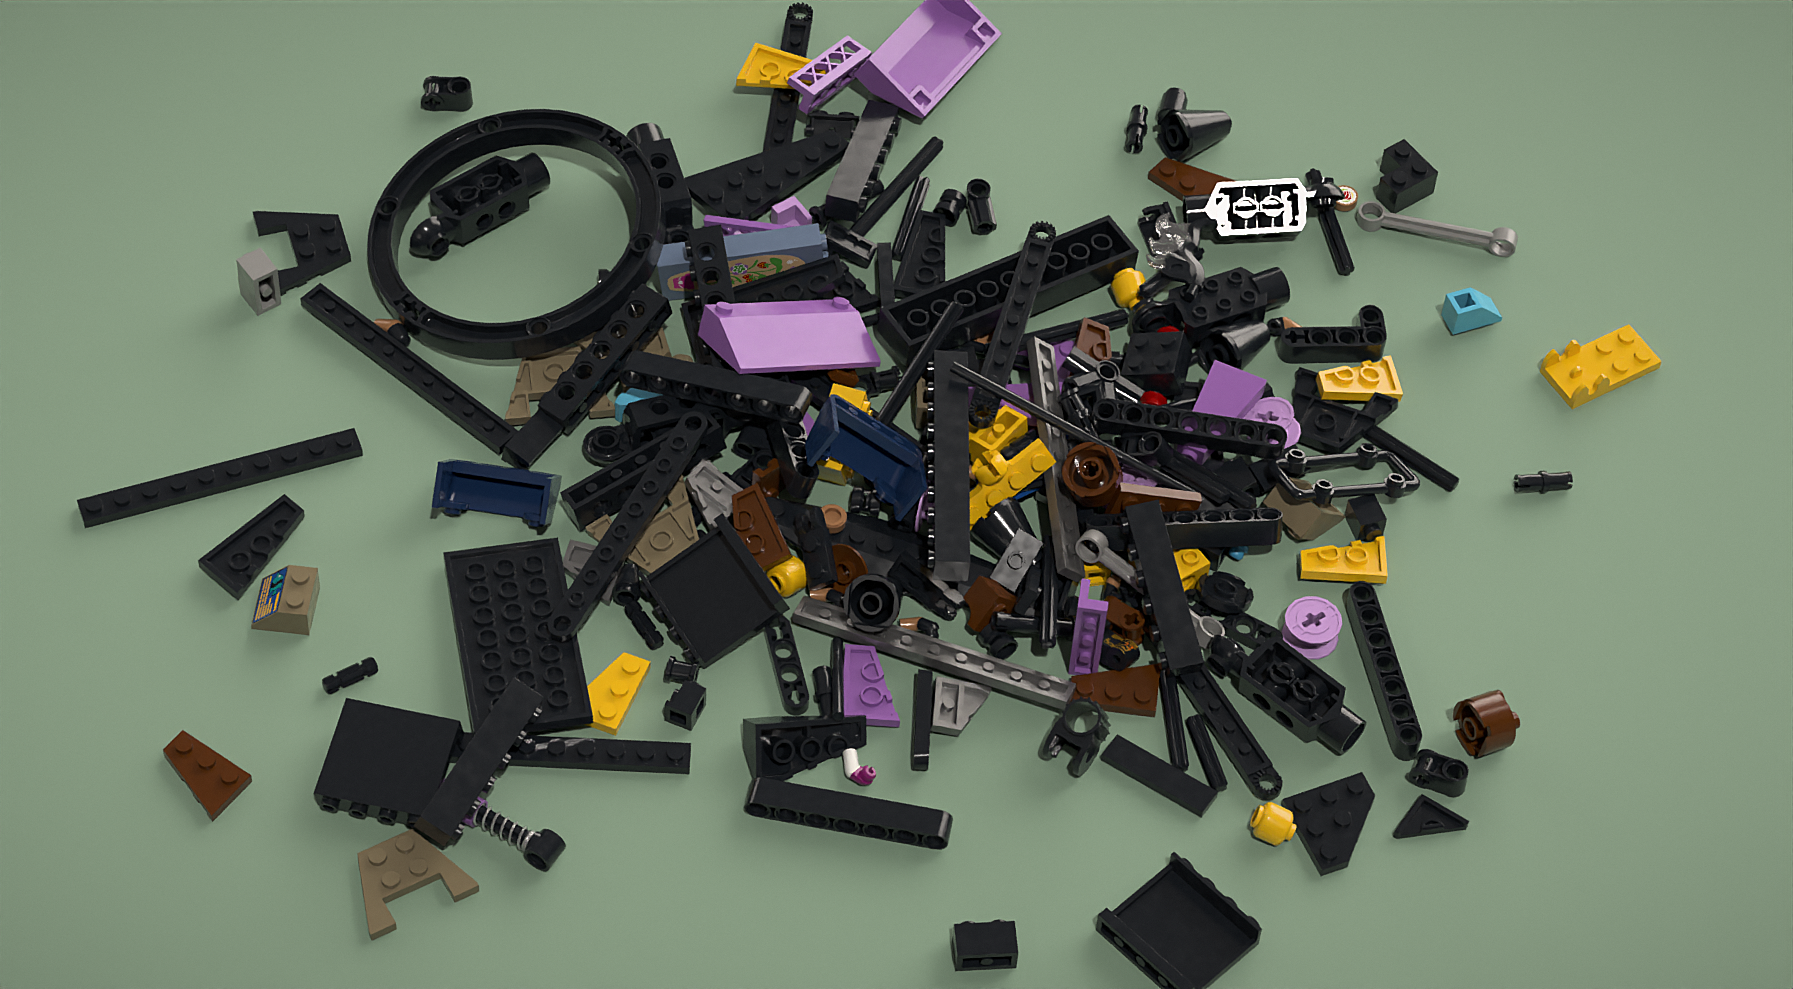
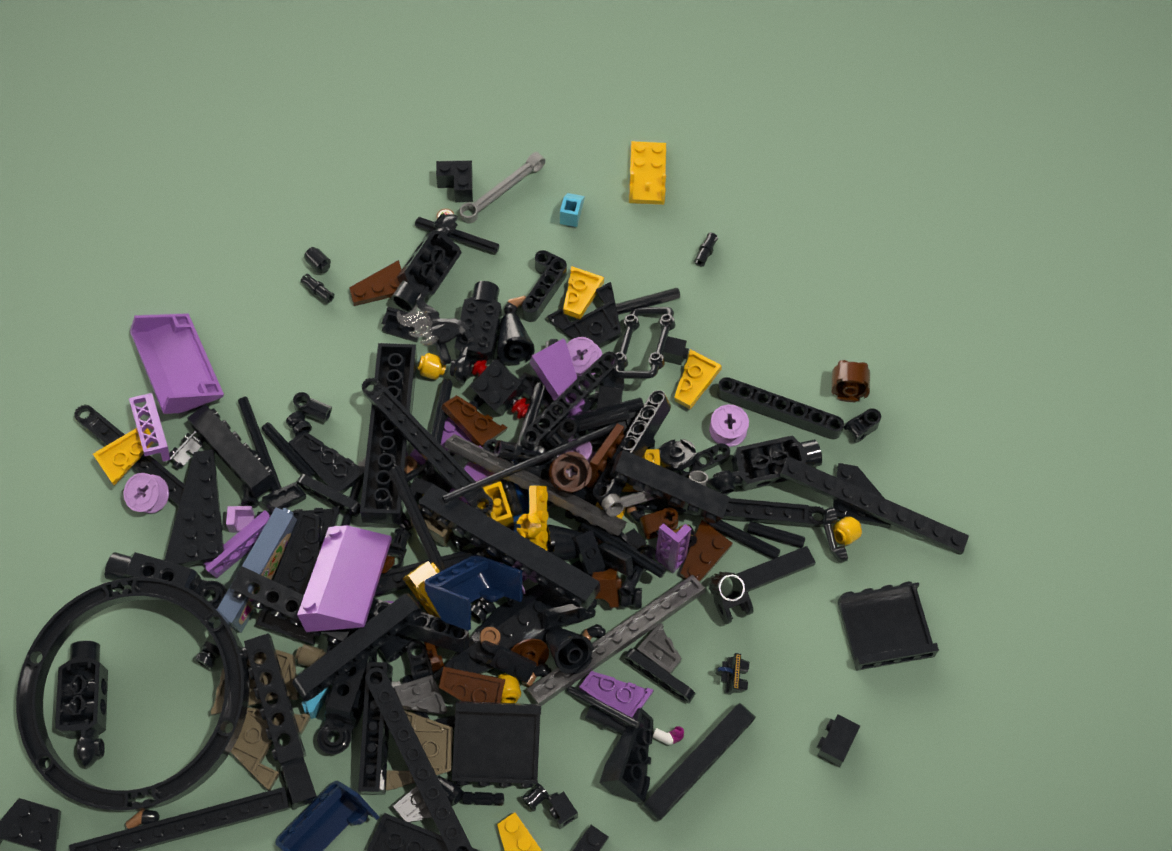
camera: 55 degrees left, 10 degrees up
(756, 123) = (146, 493): none -> lavender piece
(788, 664) = (569, 726): black beam -> none
(973, 800) = (731, 672): none -> black hips
(1098, 379) = (495, 425): black piece -> none
(1191, 131) = (344, 263): black cone -> none
(1270, 789) = (838, 552): none -> black bar
(1304, 518) = (639, 387): dark tan slope -> none
(1330, 834) = (874, 505): none -> black plate
(1429, 818) = (885, 449): black tile -> none

